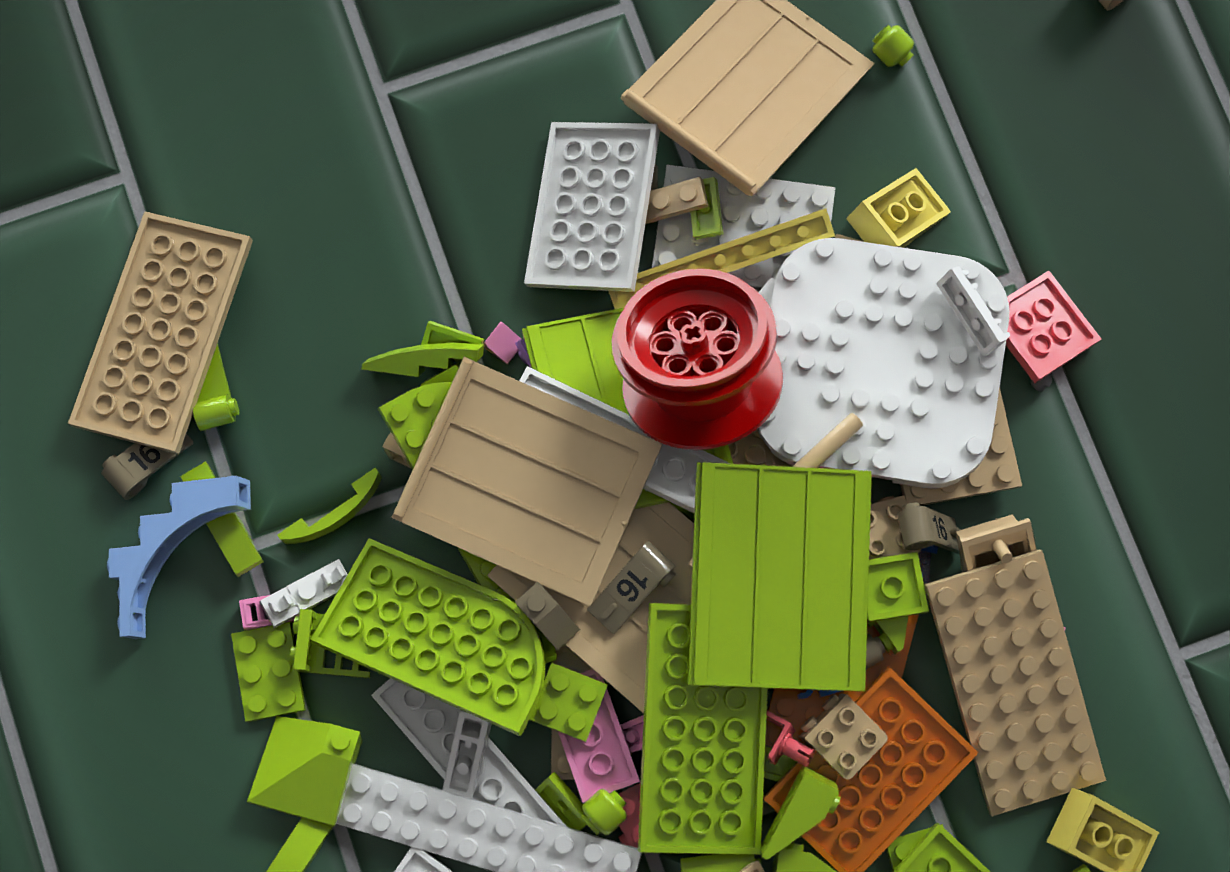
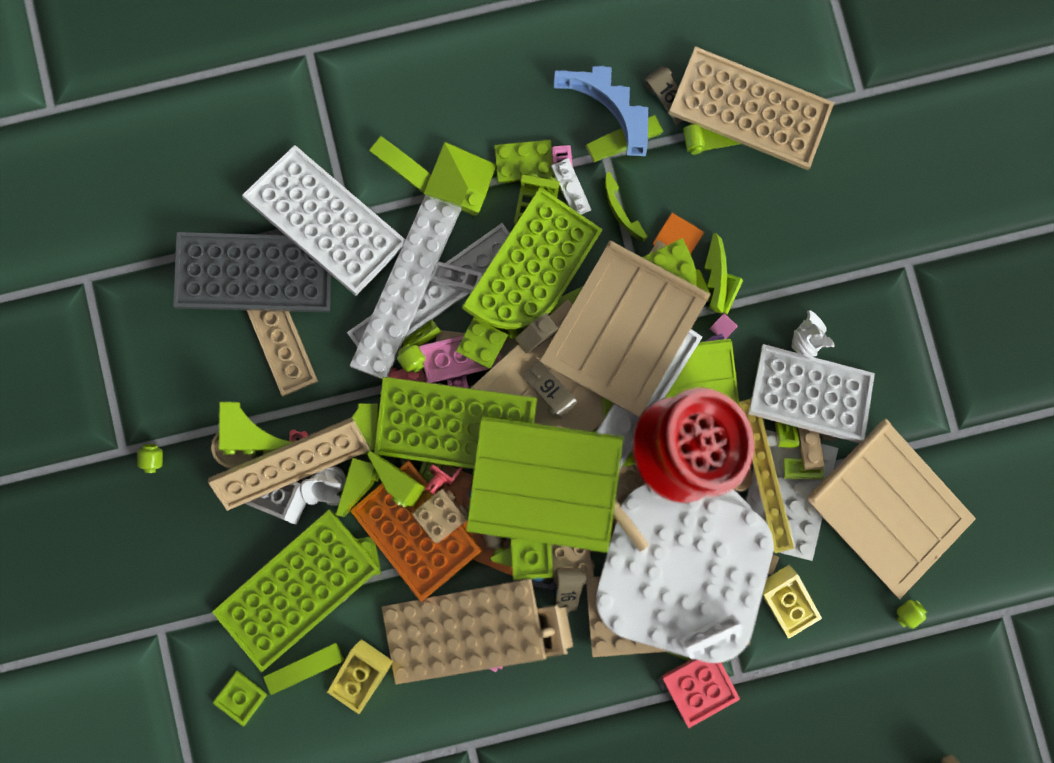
camera: 95 degrees right, 5 degrees up
(363, 424) = (678, 228): none -> orange tile
(507, 215) = (811, 336): none -> white helmet
(659, 235) = (786, 435): none -> lime plate

